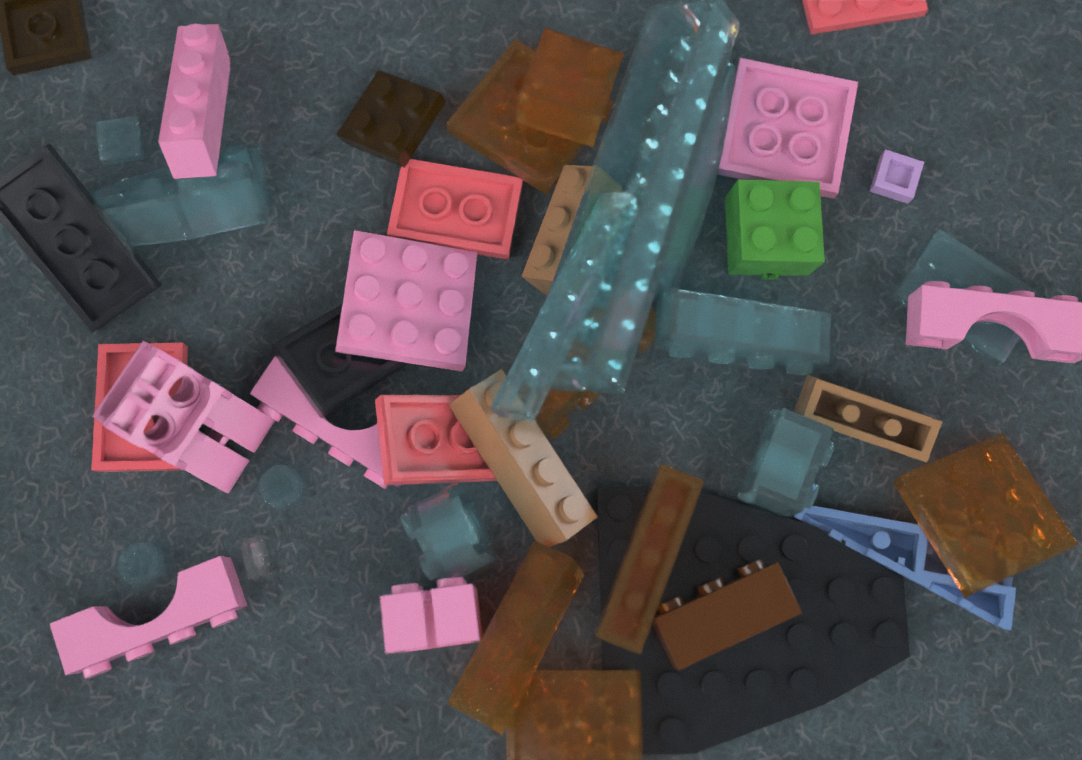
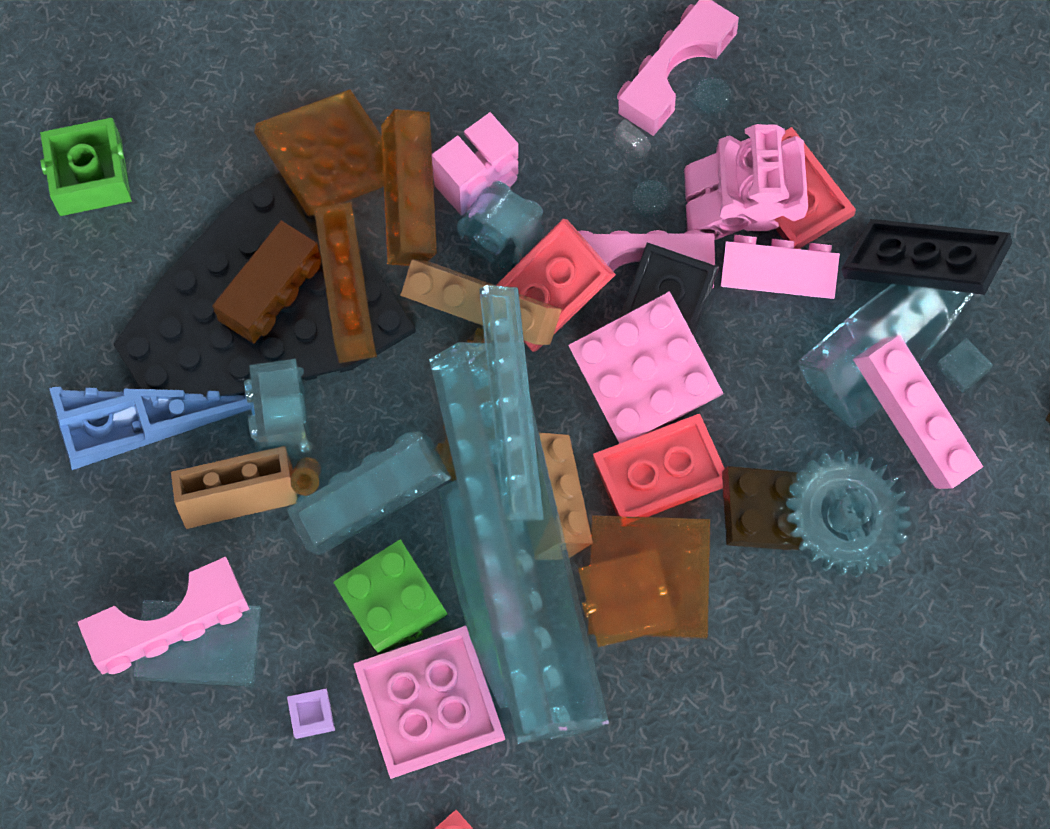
camera: 155 degrees right, 10 degrees down
(212, 324) = (780, 267): none -> bright pink brick
(315, 53) = (869, 497): none -> clear light blue gear
(795, 379) = (306, 476): none -> clear orange cylinder
(984, 514) = (106, 468): clear orange plate -> none

